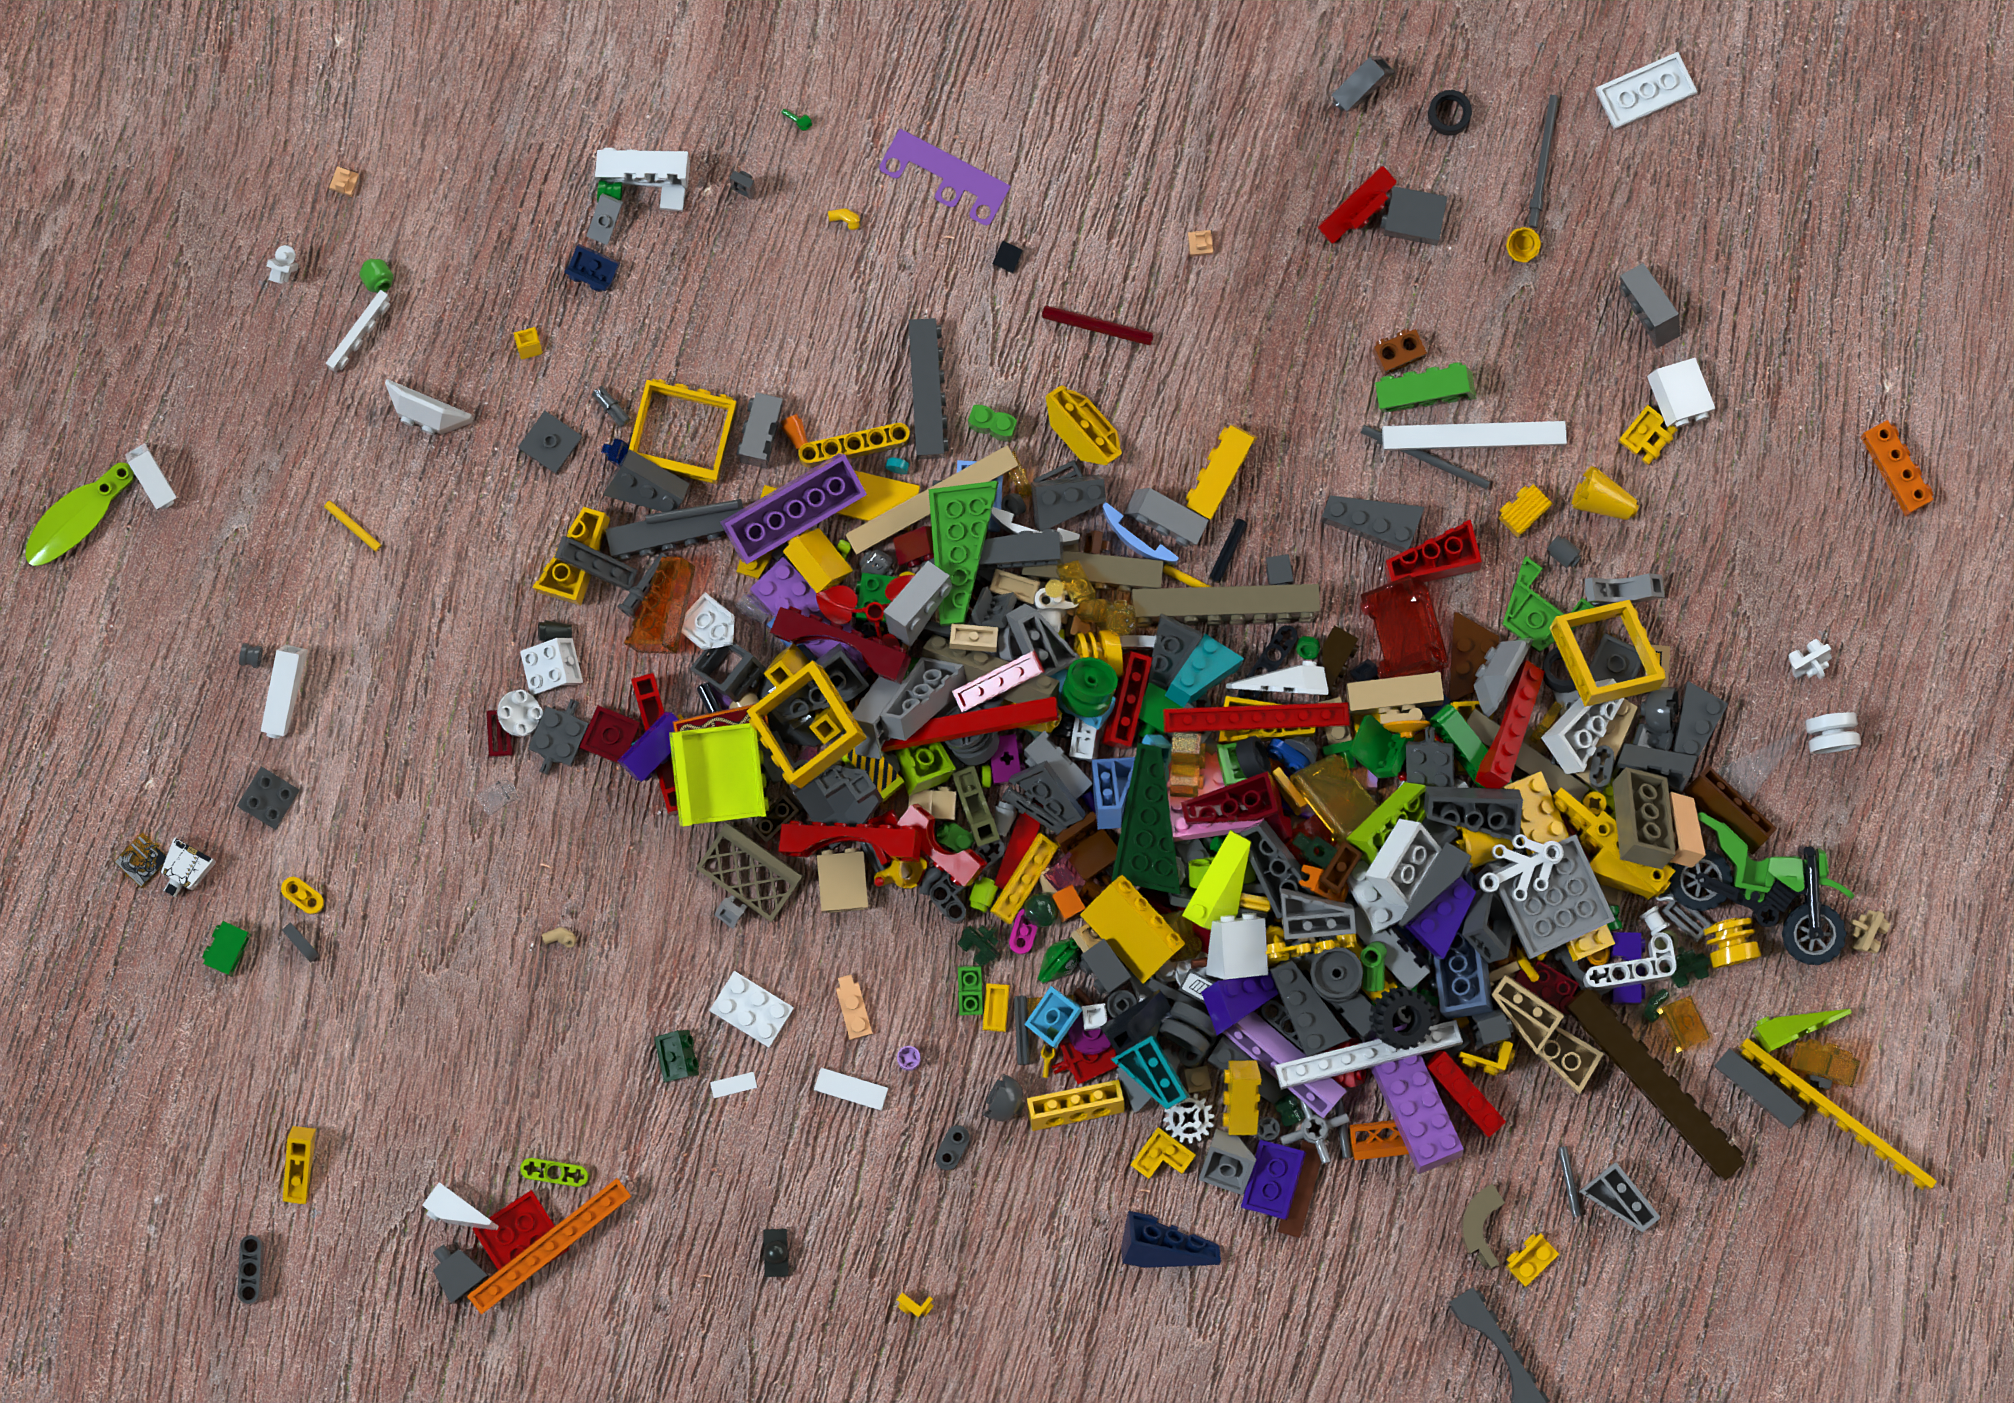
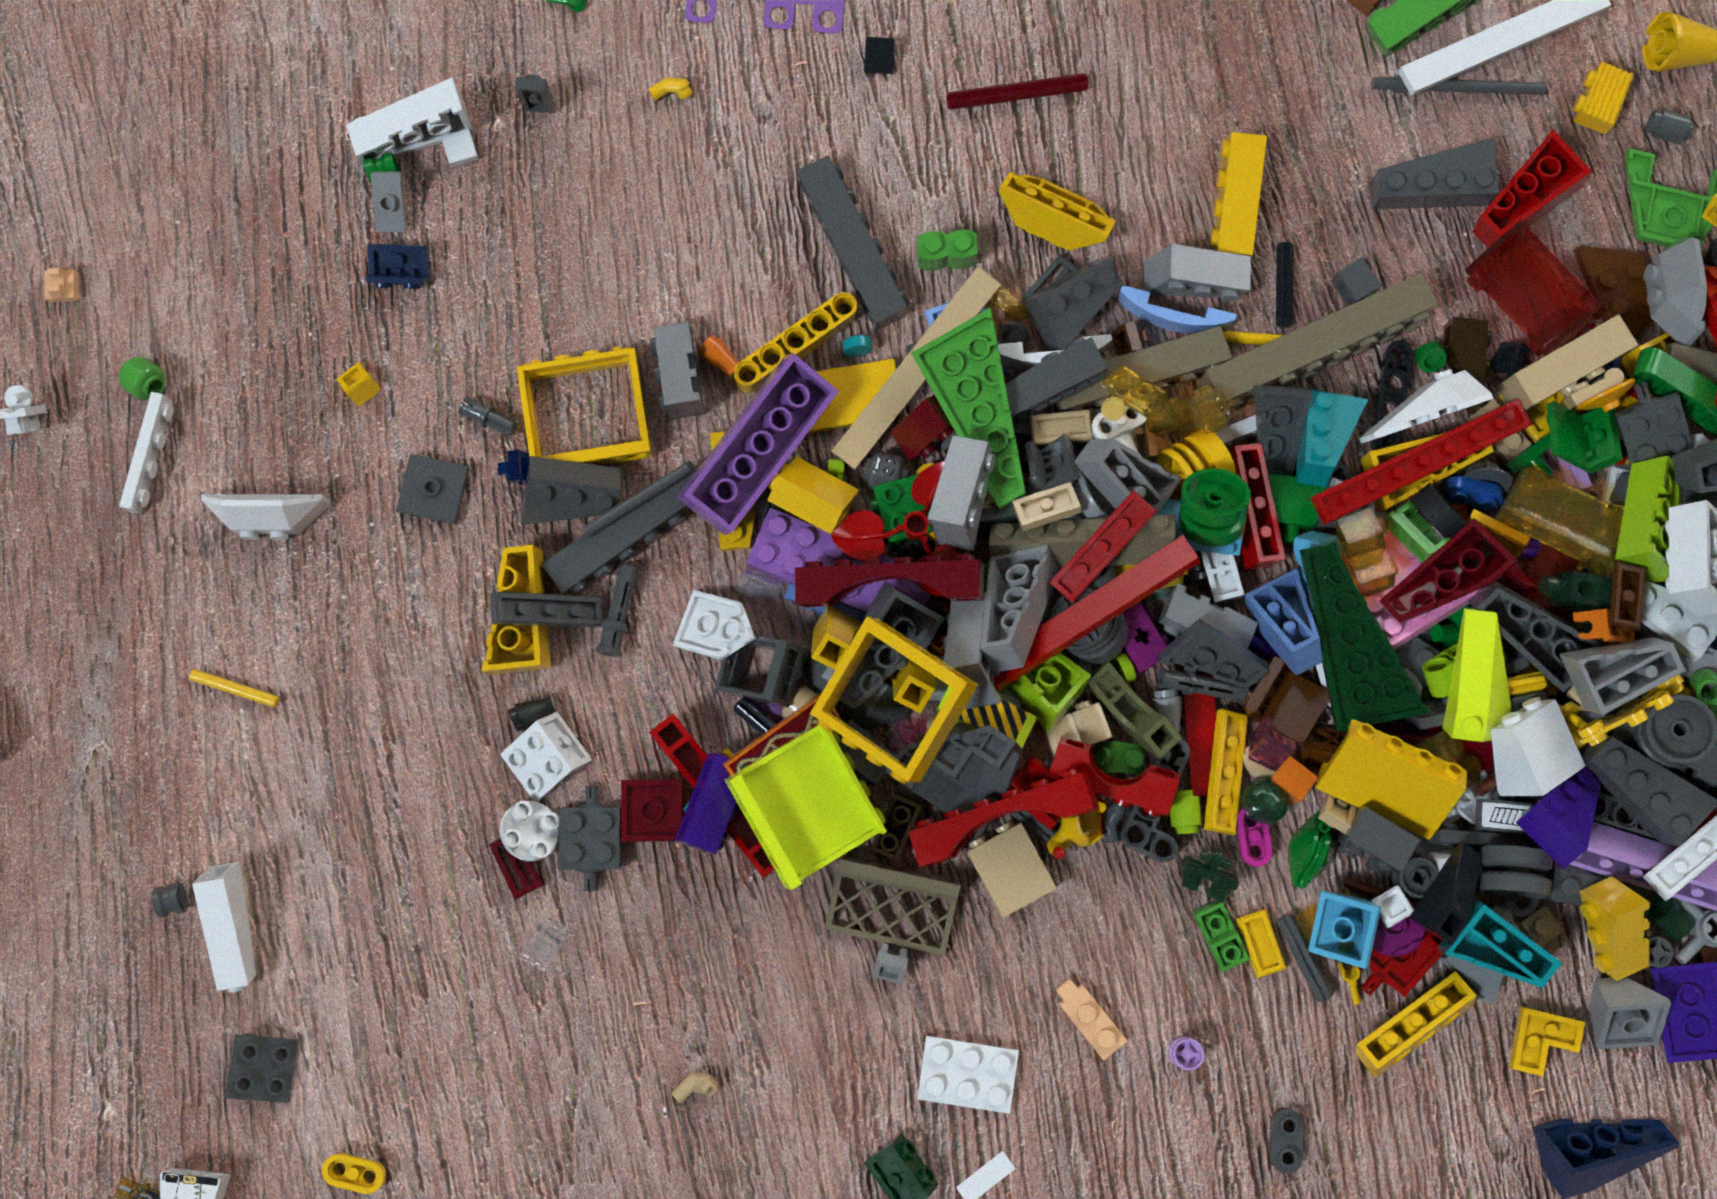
camera: 20 degrees left, 0 degrees up
(664, 608) = (652, 630): clear orange wedge -> none
(851, 1089) = (1131, 1121): white tile -> none
(1004, 1099) = (1326, 1056): dark grey cylinder -> none
(1197, 1125) = (1551, 992): white gear -> none

